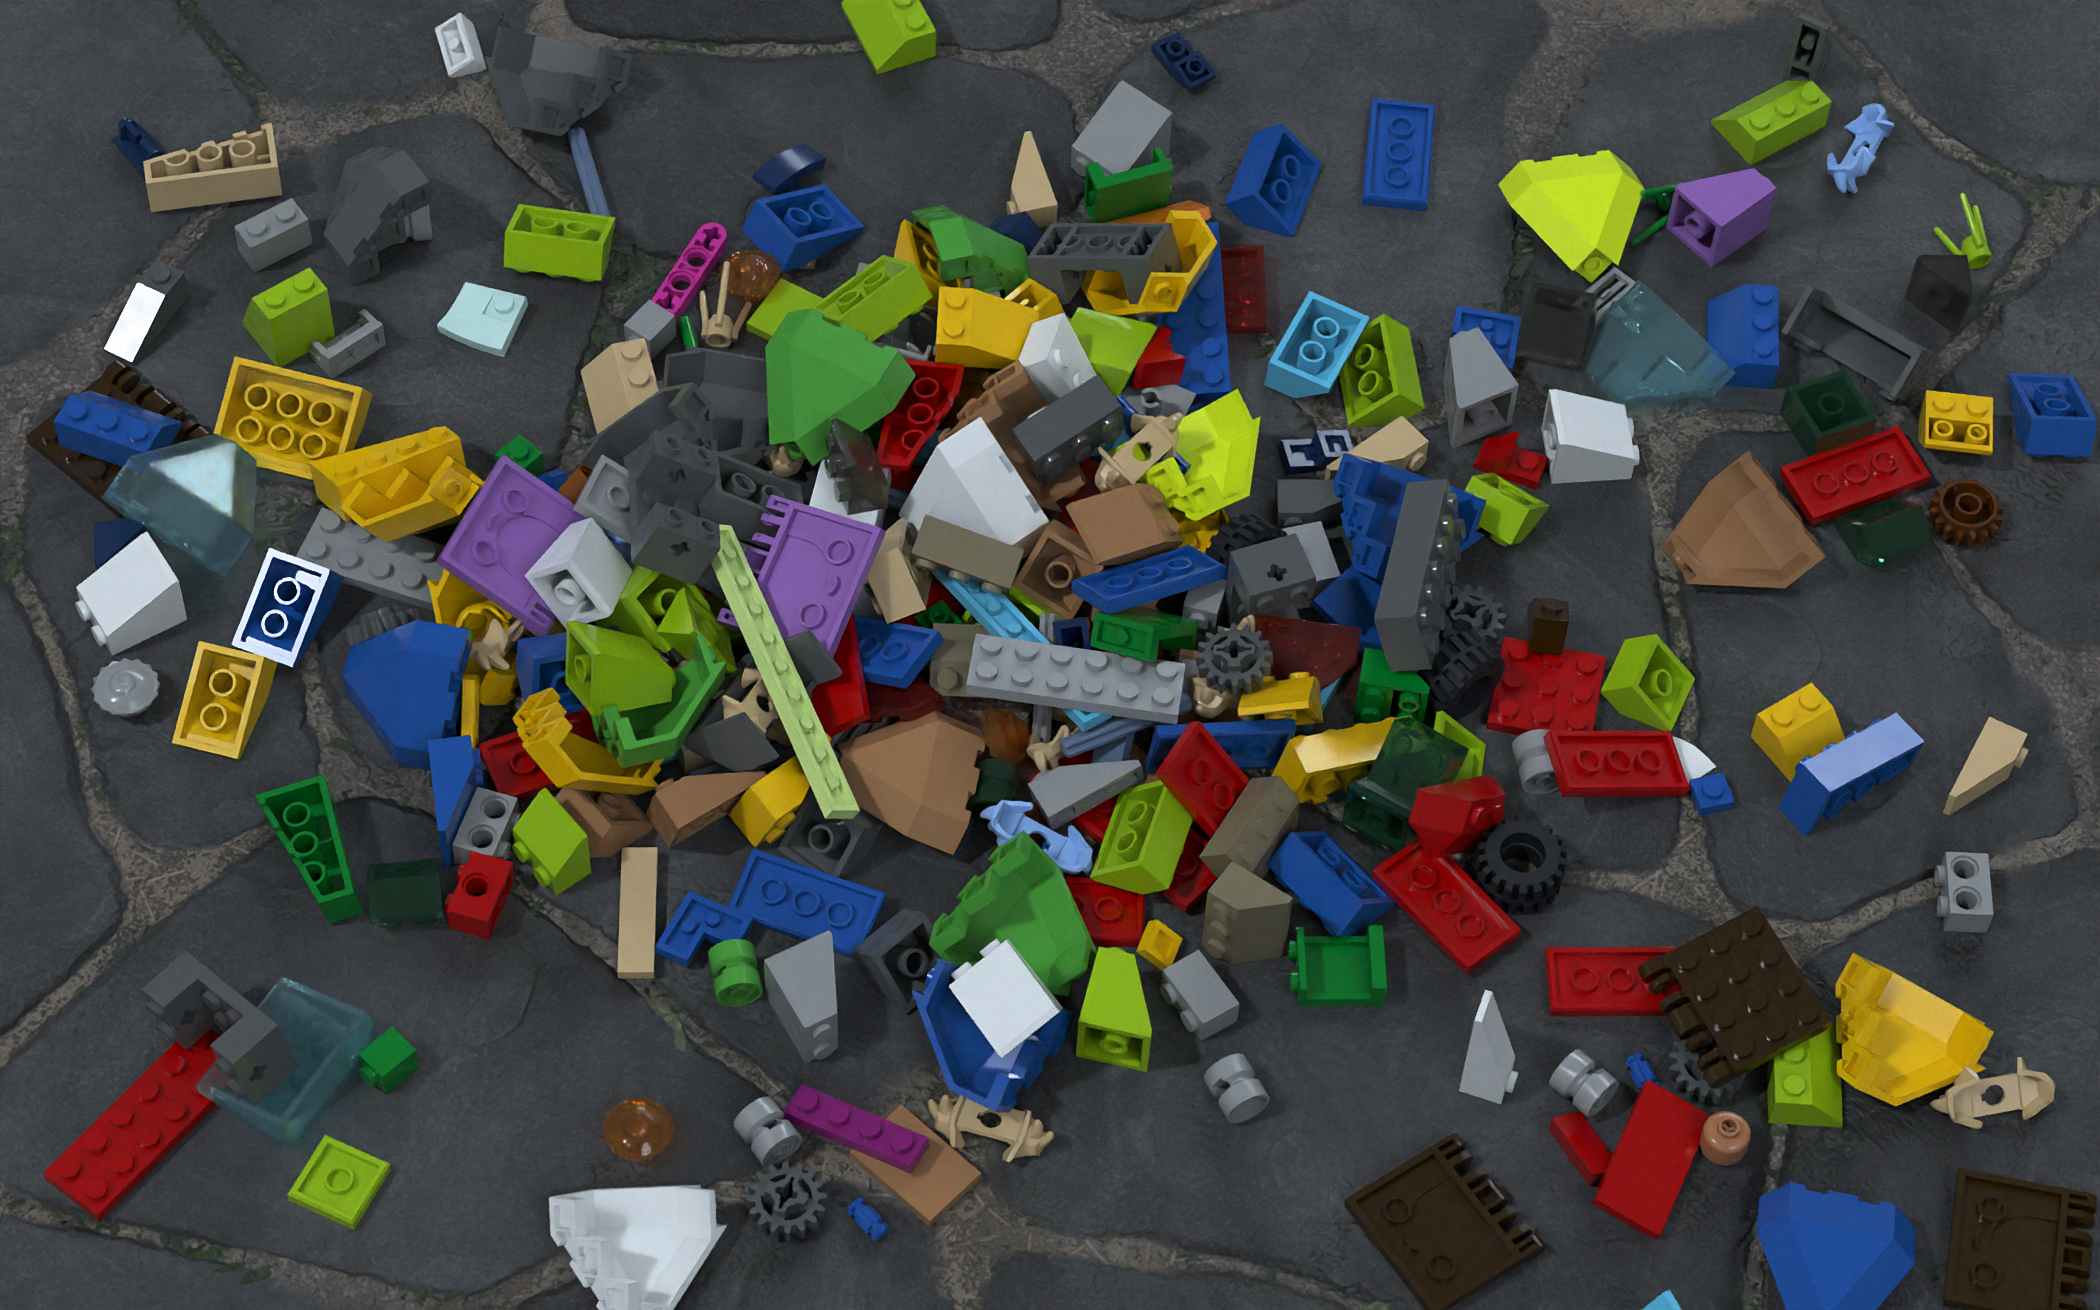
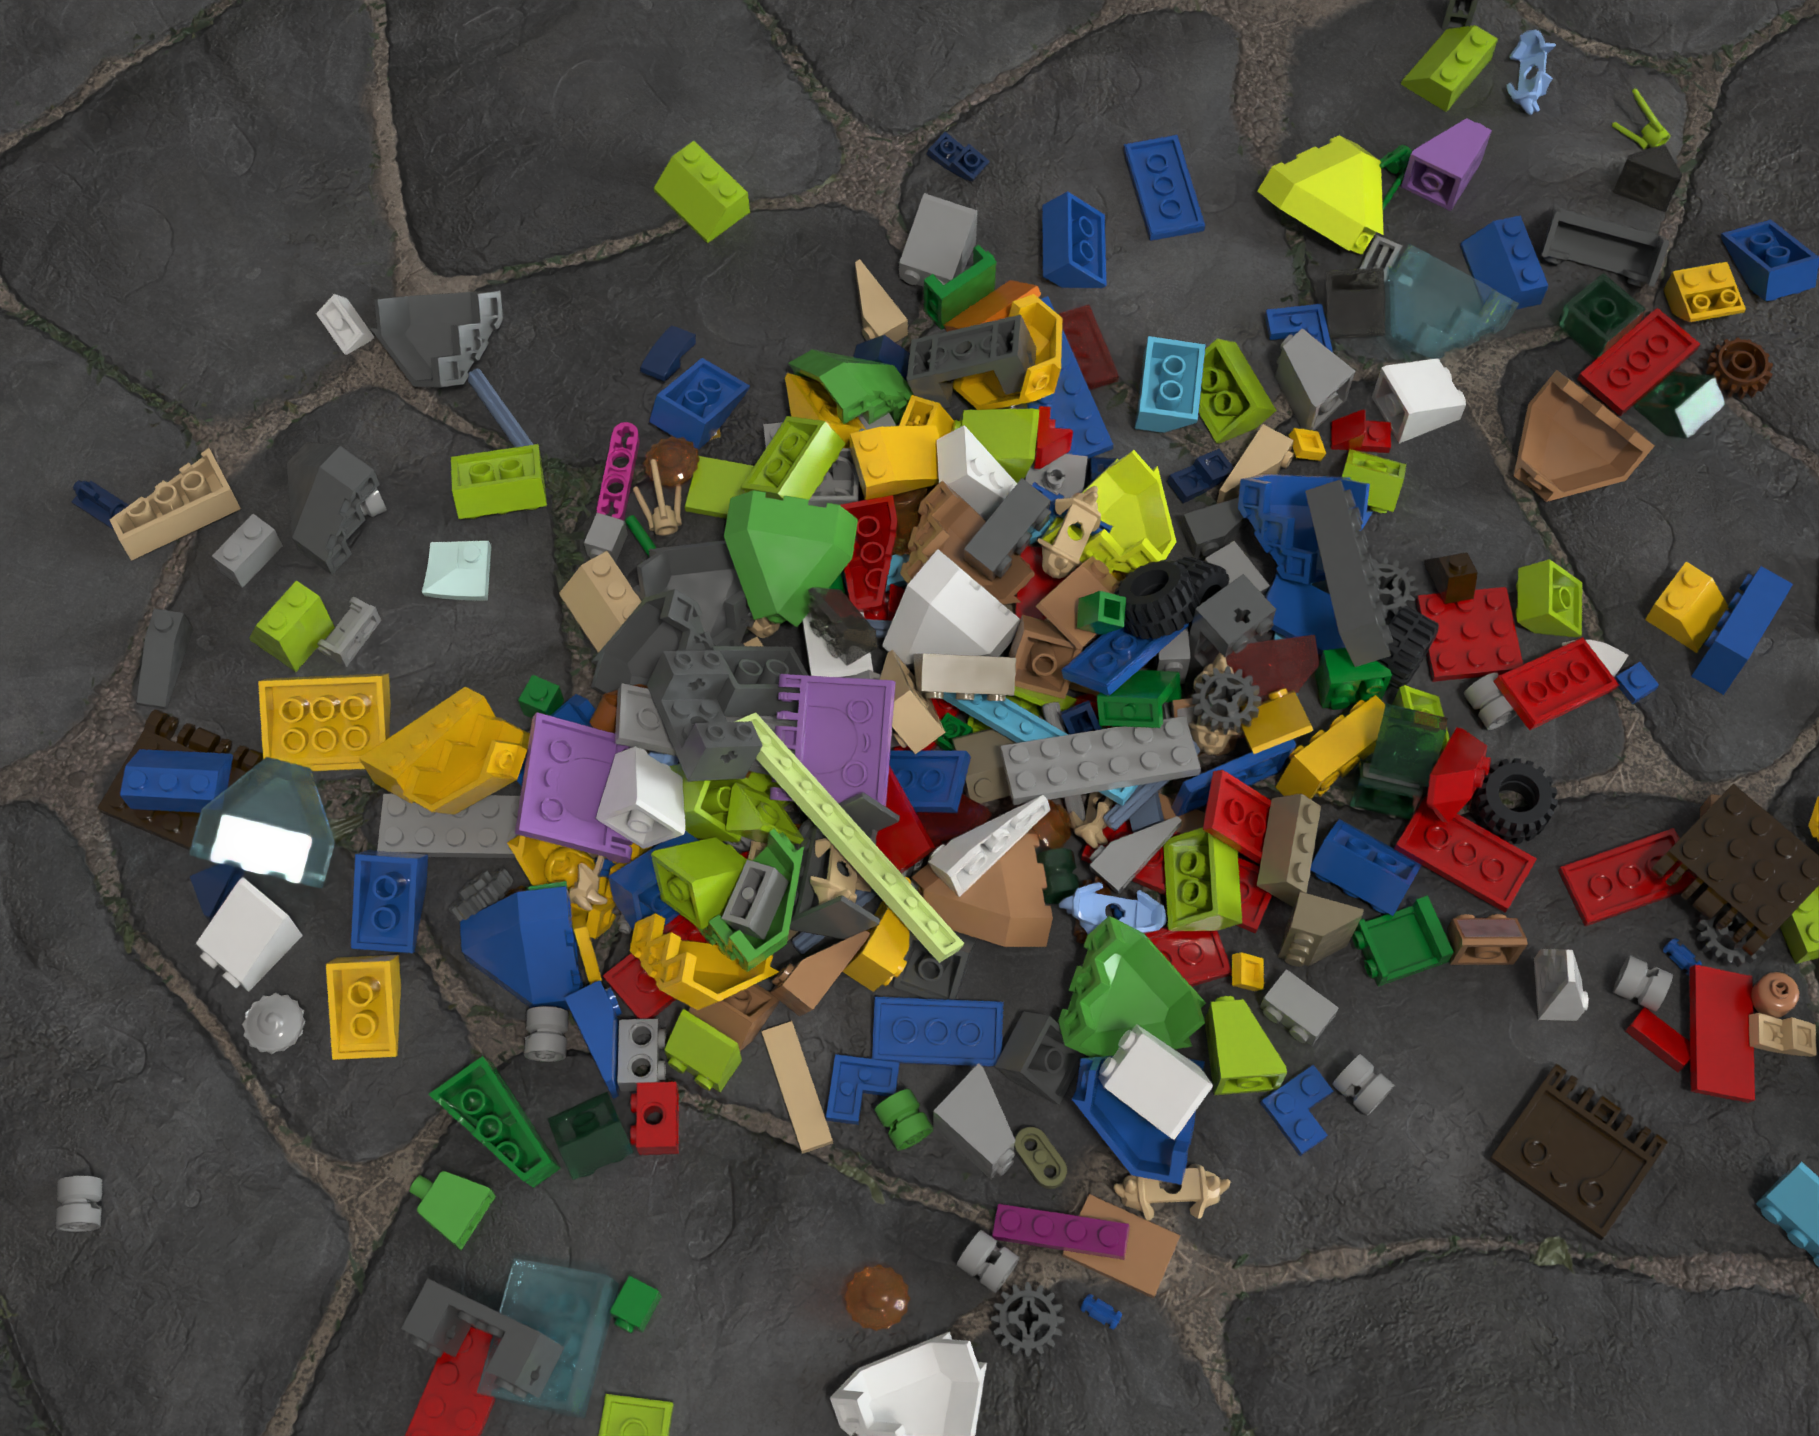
camera: 15 degrees left, 10 degrees up
(240, 912) = (452, 1205): none -> bright green torso
(400, 778) = (546, 1034): none -> light grey wheel
(658, 700) = (755, 899): none -> light grey brick
(864, 1057) = (1041, 1158): none -> olive plate
(917, 725) = (974, 852): none -> white wedge
(1130, 529) = (1101, 612): none -> green brick
(1153, 1089) = (1291, 1106): none -> blue plate
(1196, 536) = (1158, 599): none -> black tyre
(1427, 991) = (1485, 940): none -> medium nougat slope
(1445, 452) = (1307, 444): none -> yellow plate
(1722, 1186) = (1782, 1036): none -> tan slope

